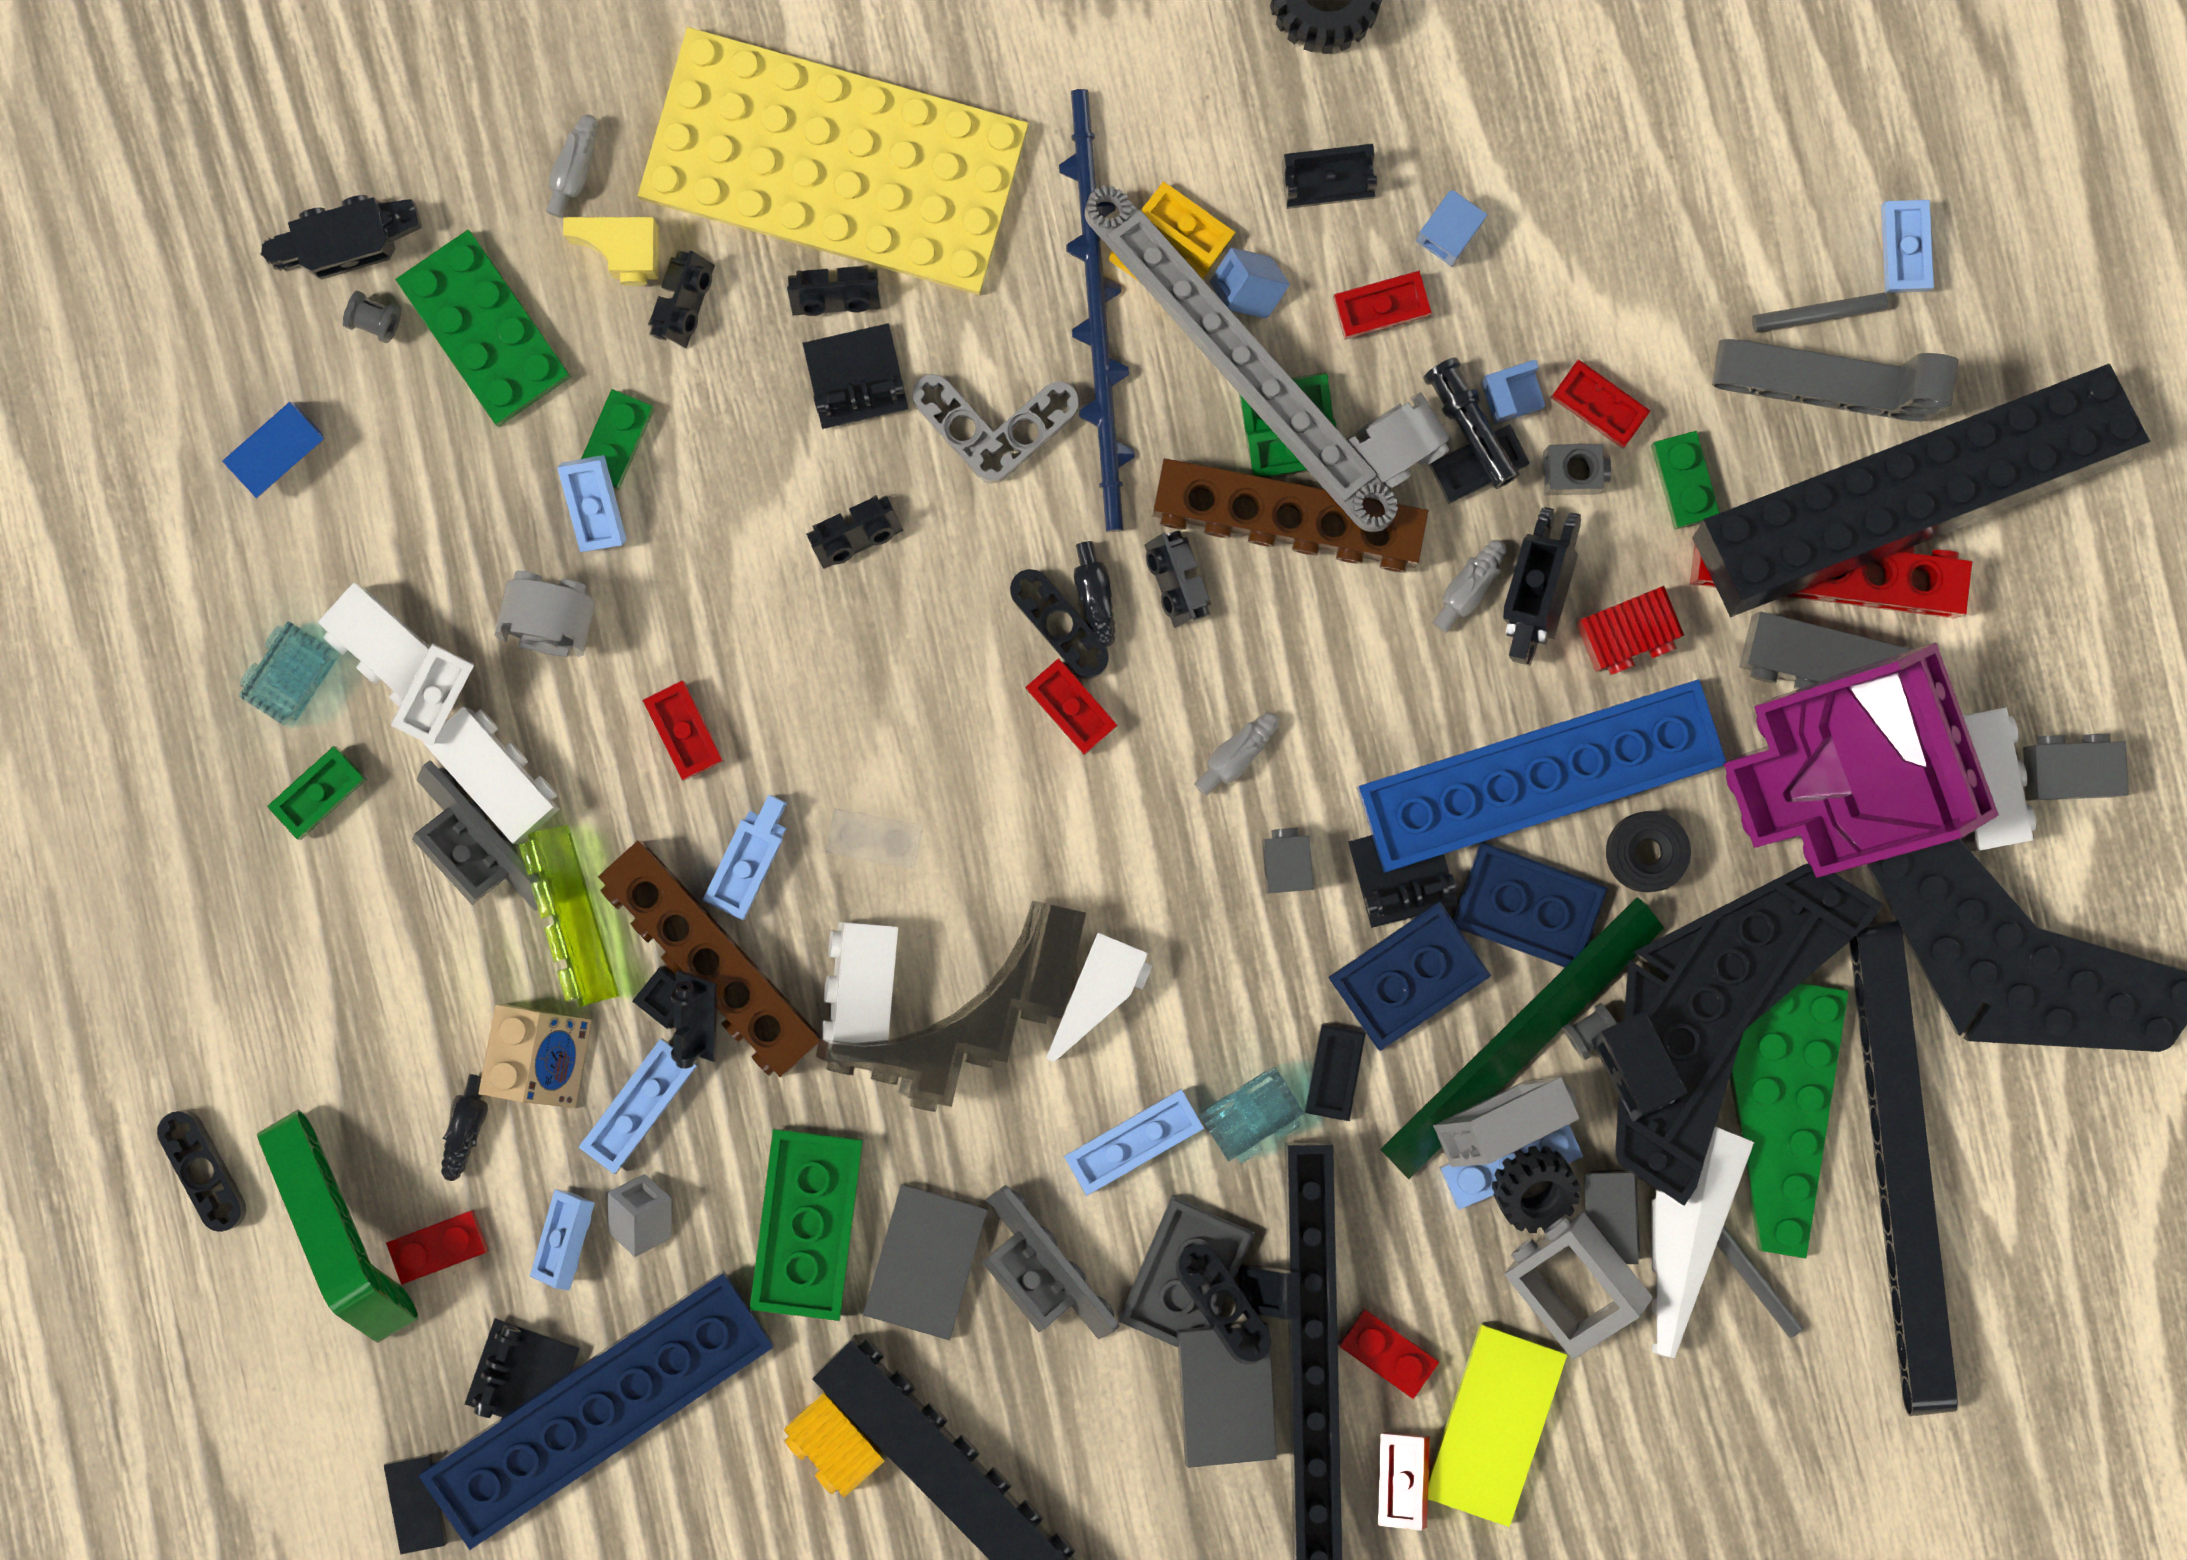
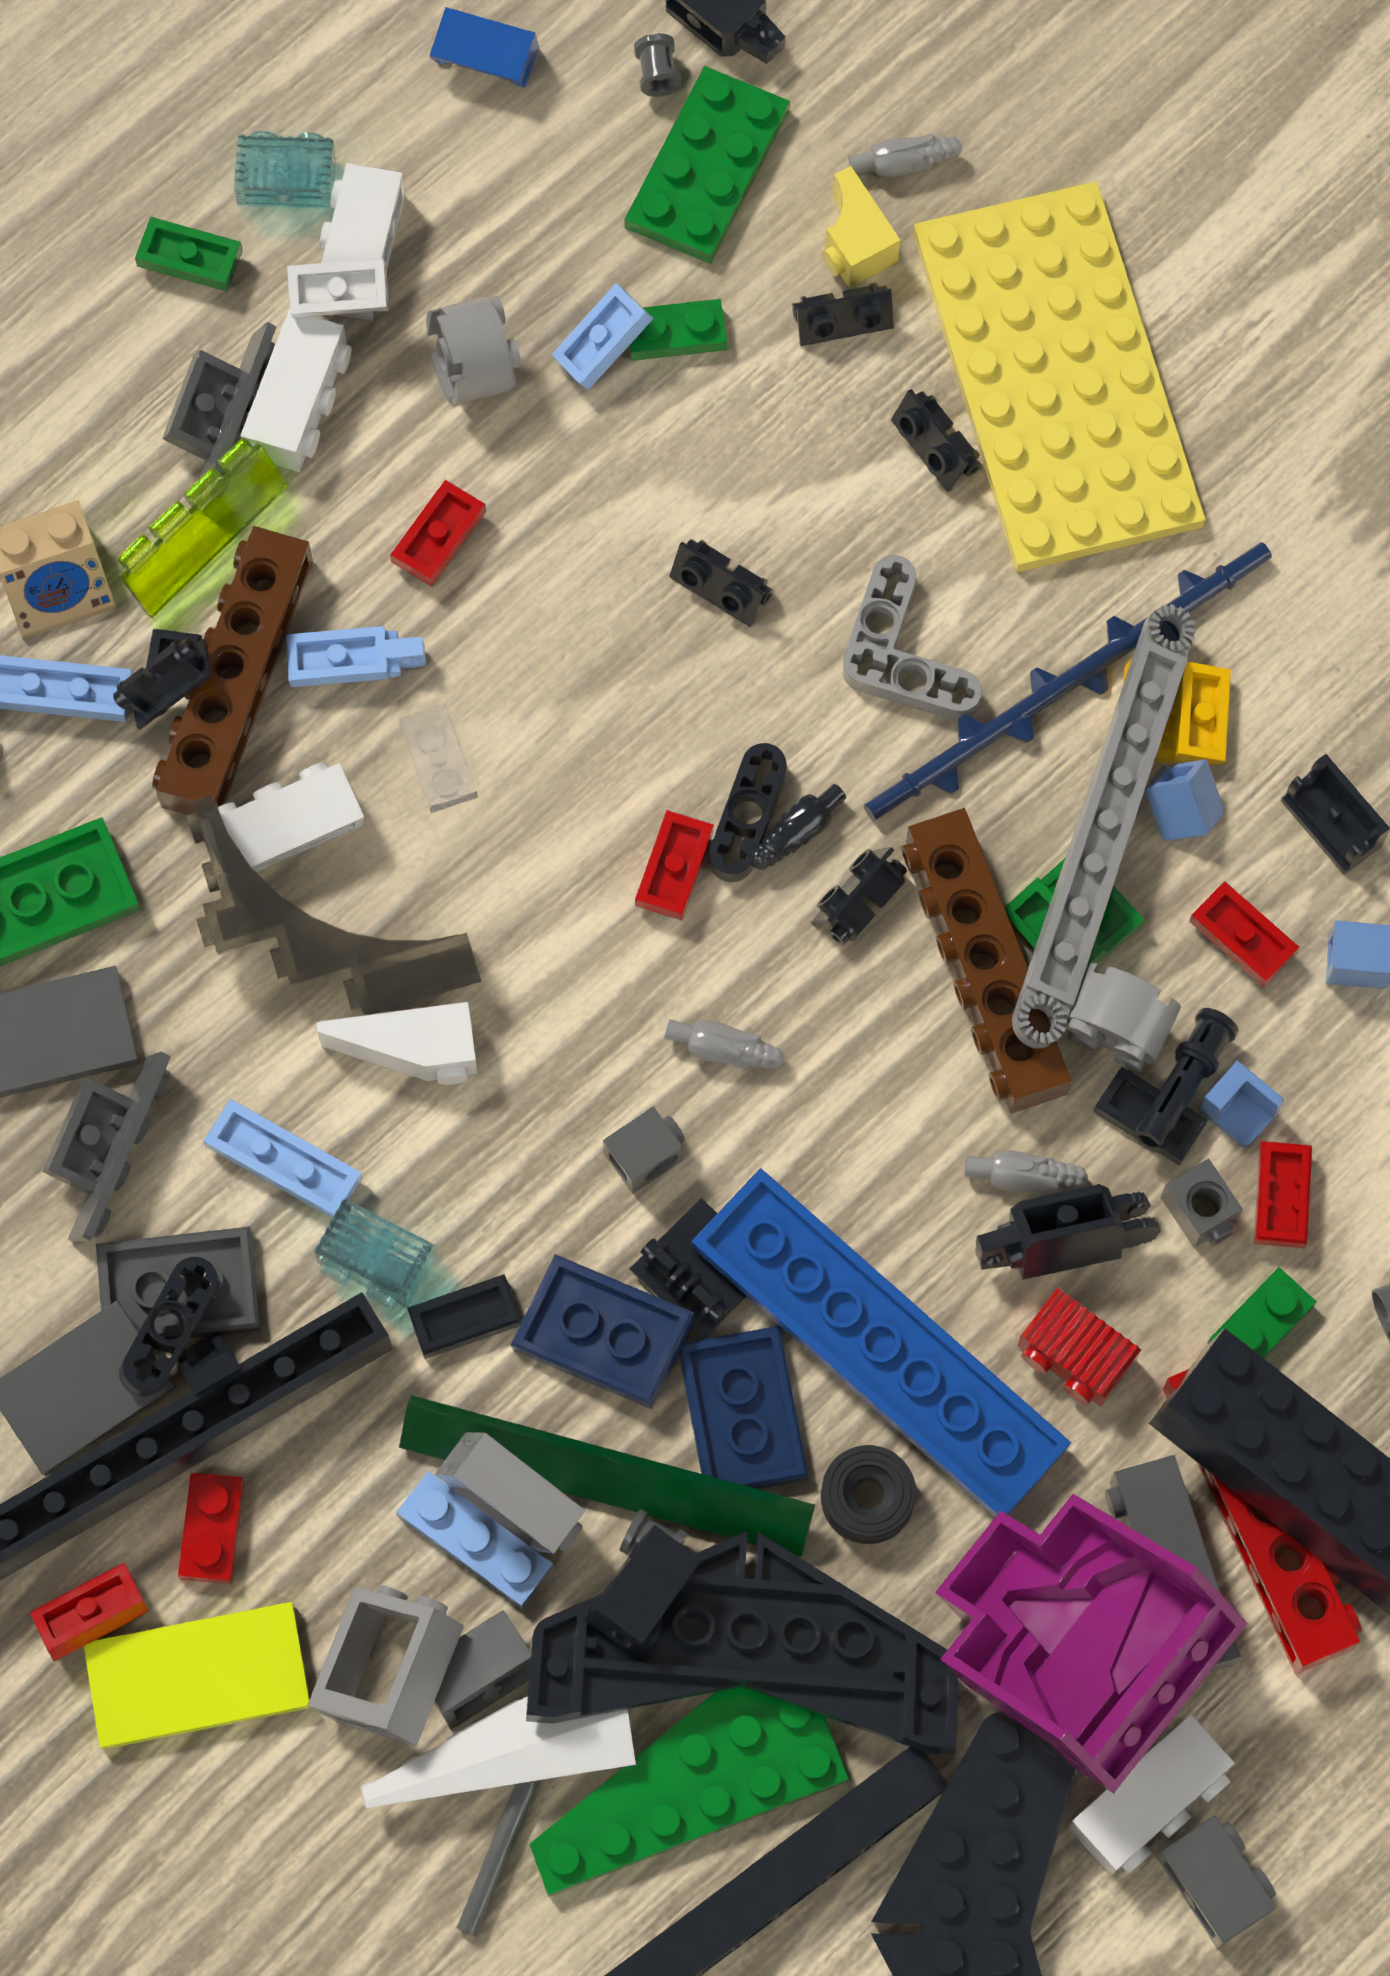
camera: 60 degrees right, 15 degrees down
(855, 376) = (867, 502): black hinge -> none
(1523, 1173) = (484, 1556): black tyre -> none

